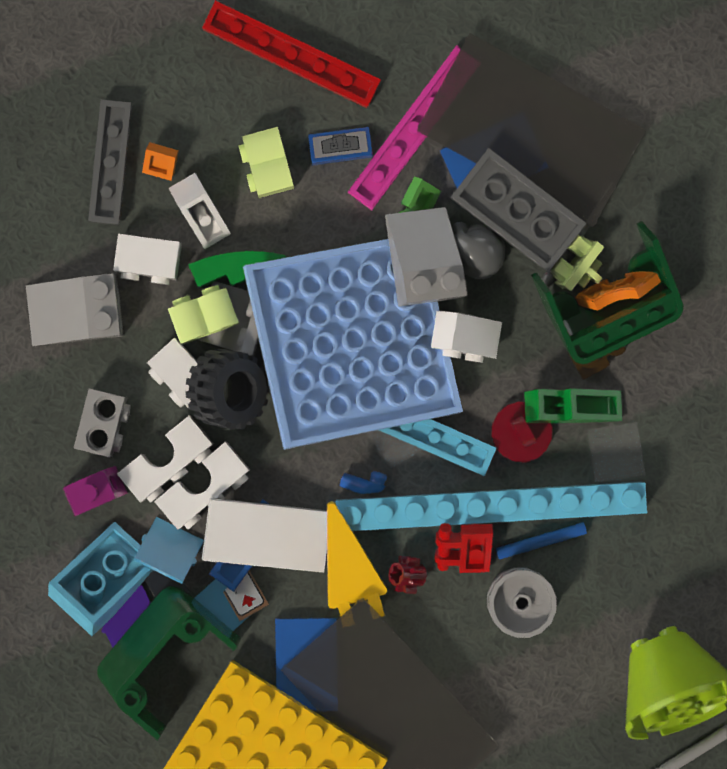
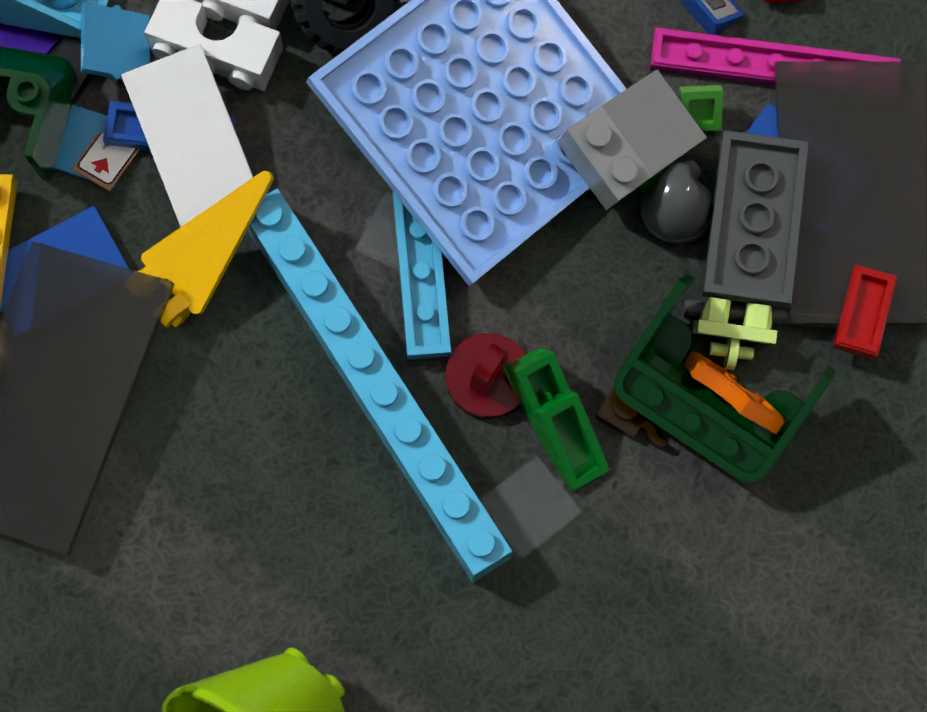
camera: 55 degrees right, 15 degrees down
(364, 486) = (315, 224): blue arm -> none
(407, 574) = (232, 328): dark red gear -> none
(466, 335) = (568, 236): white brick -> none
(473, 544) = (312, 384): red plate -> none
(505, 592) = (276, 508): light grey wheel -> none
(541, 540) = (364, 474): blue bar -> none
(613, 177) = (865, 312): none -> red tile

